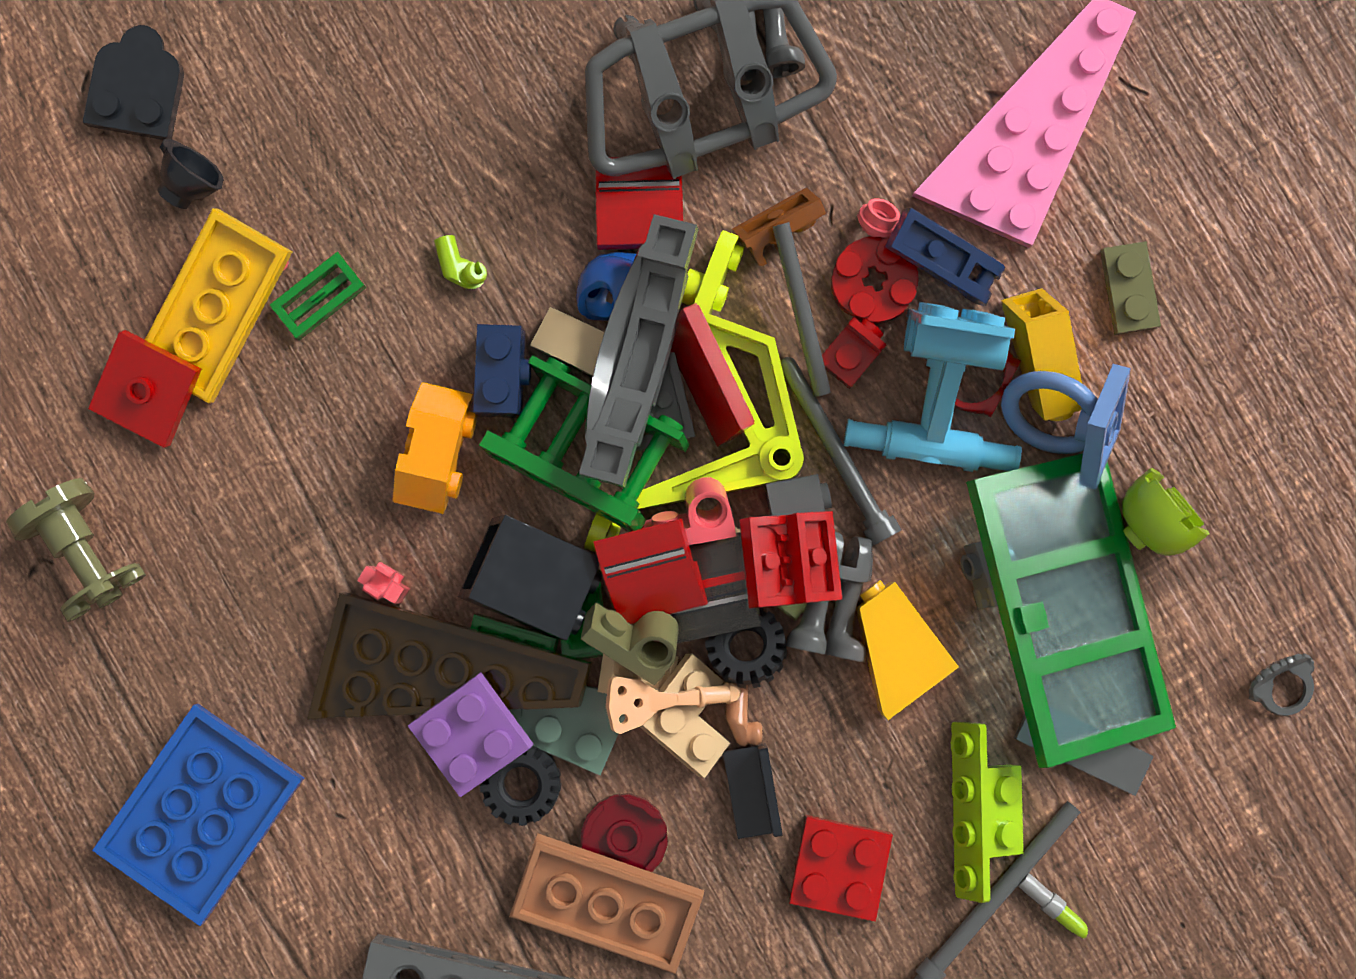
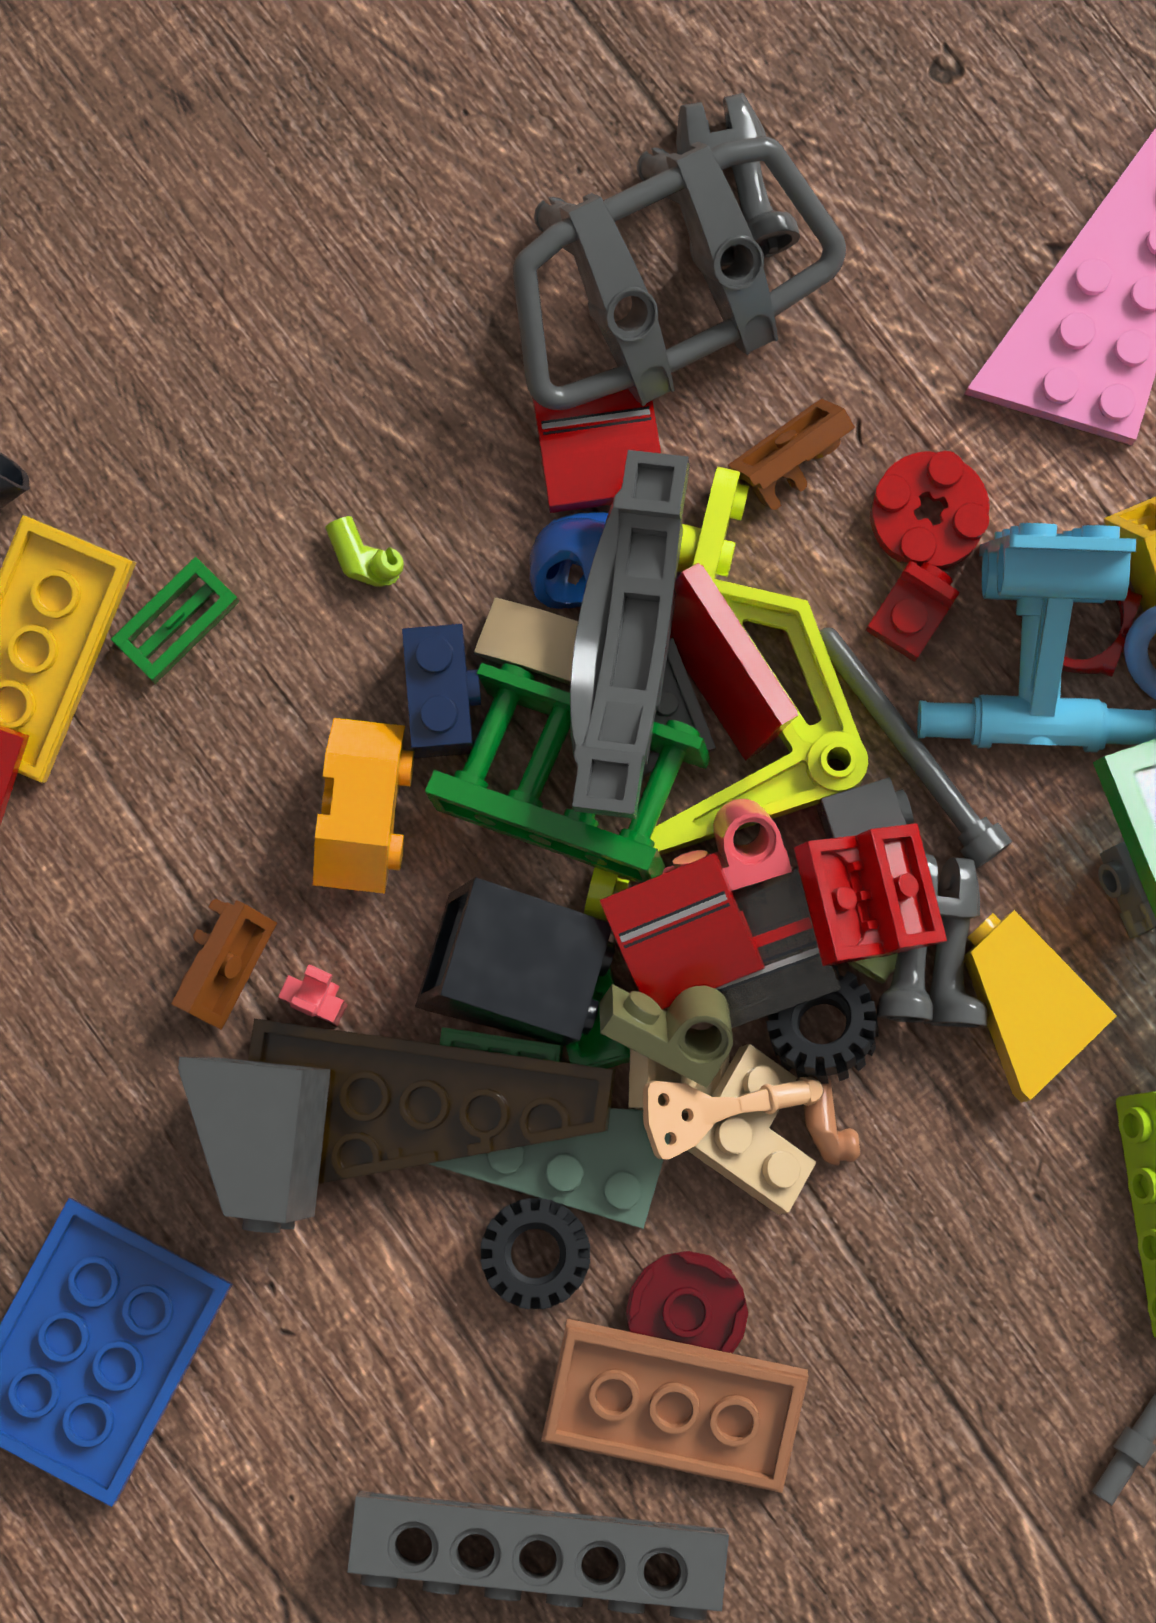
camera: 15 degrees left, 5 degrees down
(323, 550) = (225, 962): none -> dark orange plate
(328, 680) = (259, 1136): none -> dark grey slope
(470, 735) = (461, 1189): medium lavender plate -> none
(752, 791) = (857, 1225): black panel -> none
(801, 309) = (838, 559): dark grey bar -> none
(840, 868) = (990, 1317): red plate -> none
(878, 218) = (925, 427): coral plate -> none
(944, 256) = (1021, 466): dark blue plate -> none

